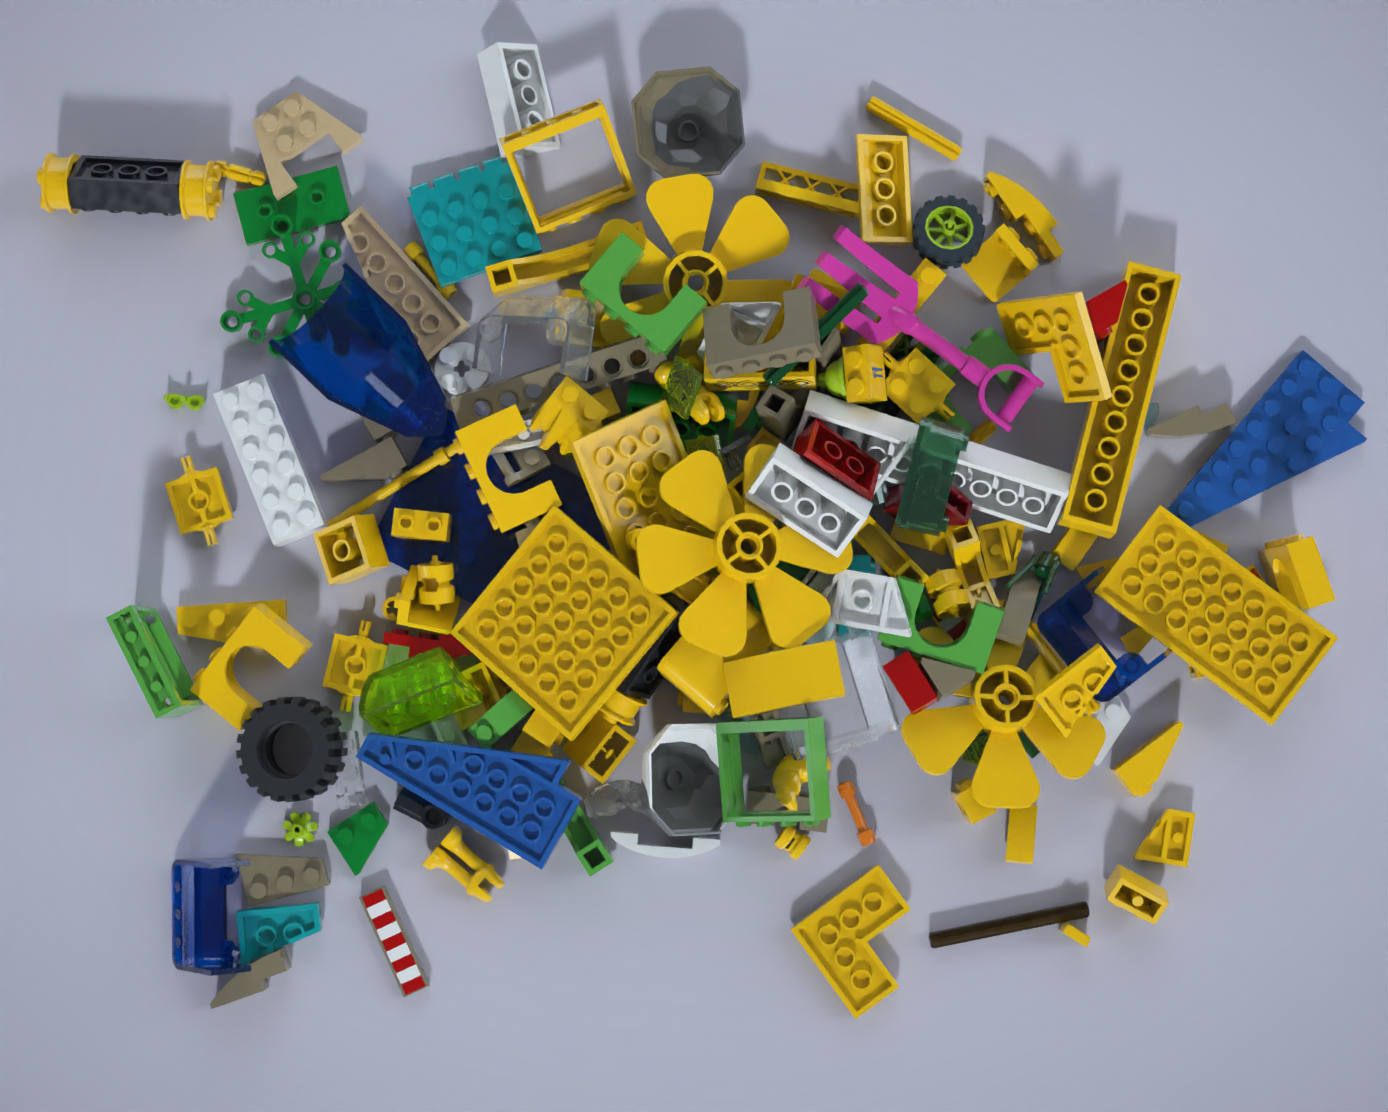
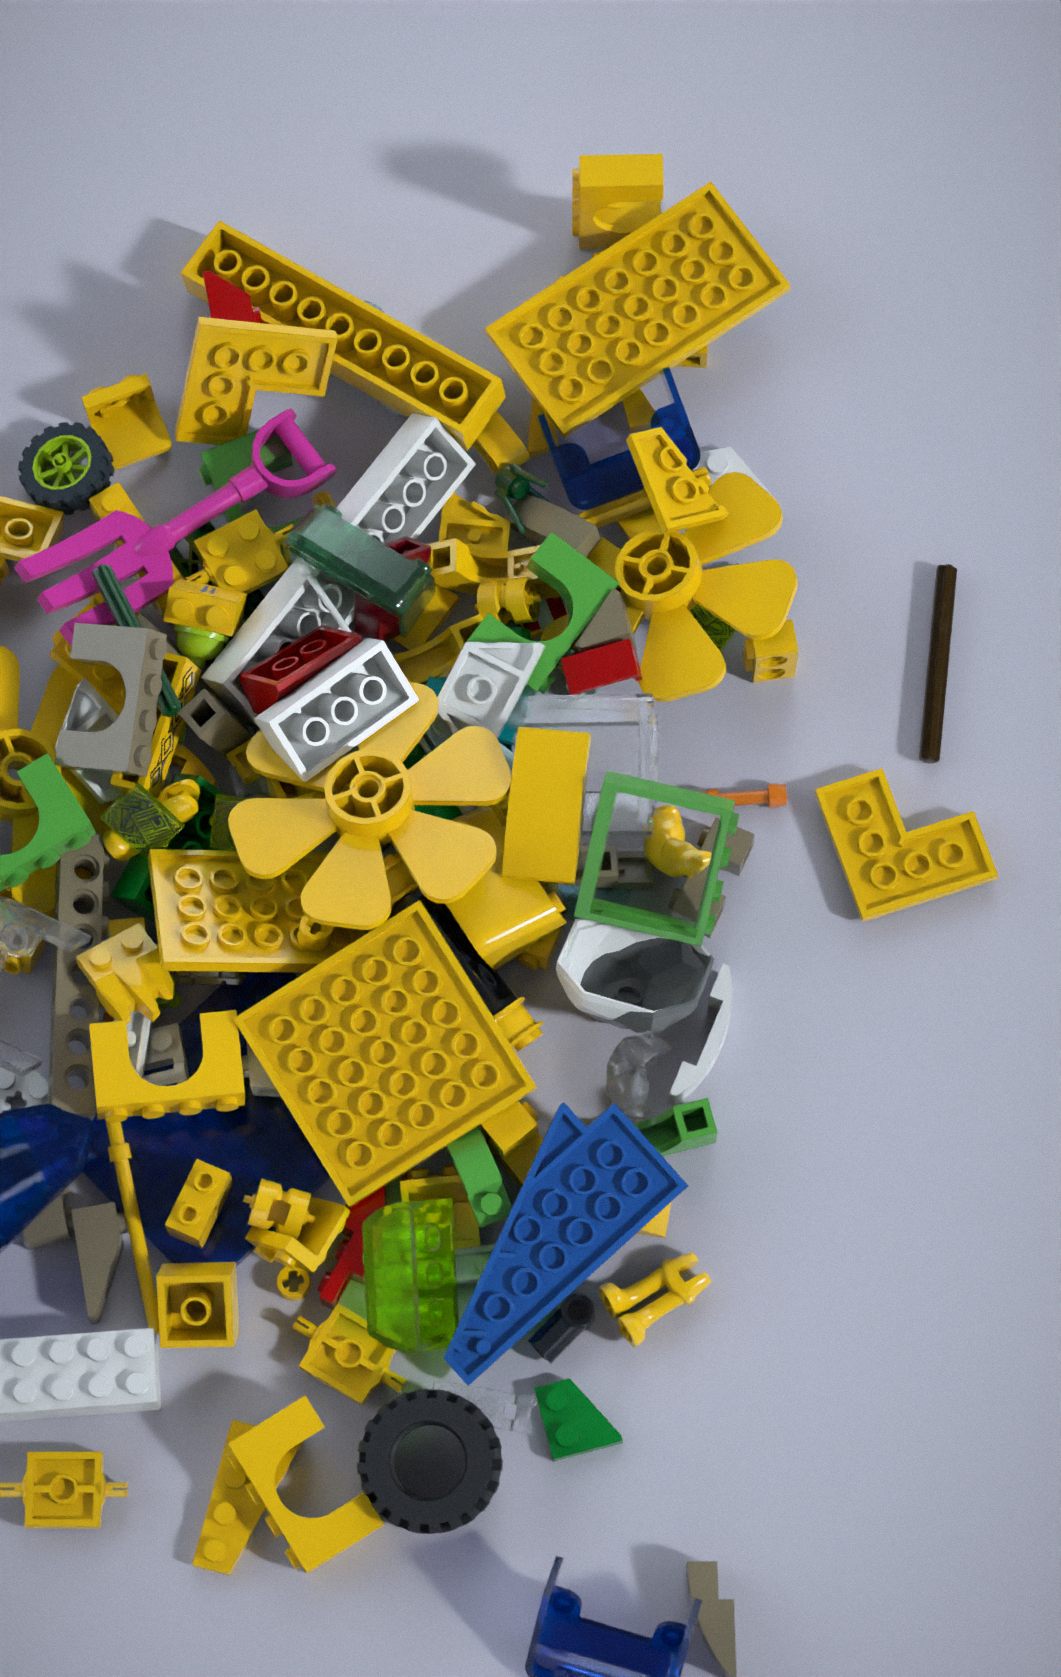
camera: 70 degrees left, 15 degrees down
(154, 661) = (254, 1592): bright green window -> none
(272, 927) = (655, 1568): teal wing -> none
(280, 876) = (593, 1539): dark tan wing -> none
(305, 826) = (537, 1503): lime plant -> none
(394, 941) = (723, 1418): tile -> none
(600, 747) = (561, 1074): yellow slope -> none
(752, 421) = (214, 763): green plate -> none
(796, 846) = (753, 882): yellow wheel -> none
(1019, 204) = (63, 378): yellow slope -> none
(1021, 835) = (831, 612): yellow slope -> none
(1074, 933) = (972, 589): yellow tile -> none
(1136, 894) = (947, 501): yellow brick -> none
(1145, 764) = (790, 443): yellow slope -> none
(1169, 839) = (891, 449): yellow wing -> none
(1193, 423) = (401, 266): dark tan slope -> none
(1284, 434) = (452, 178): blue wing -> none

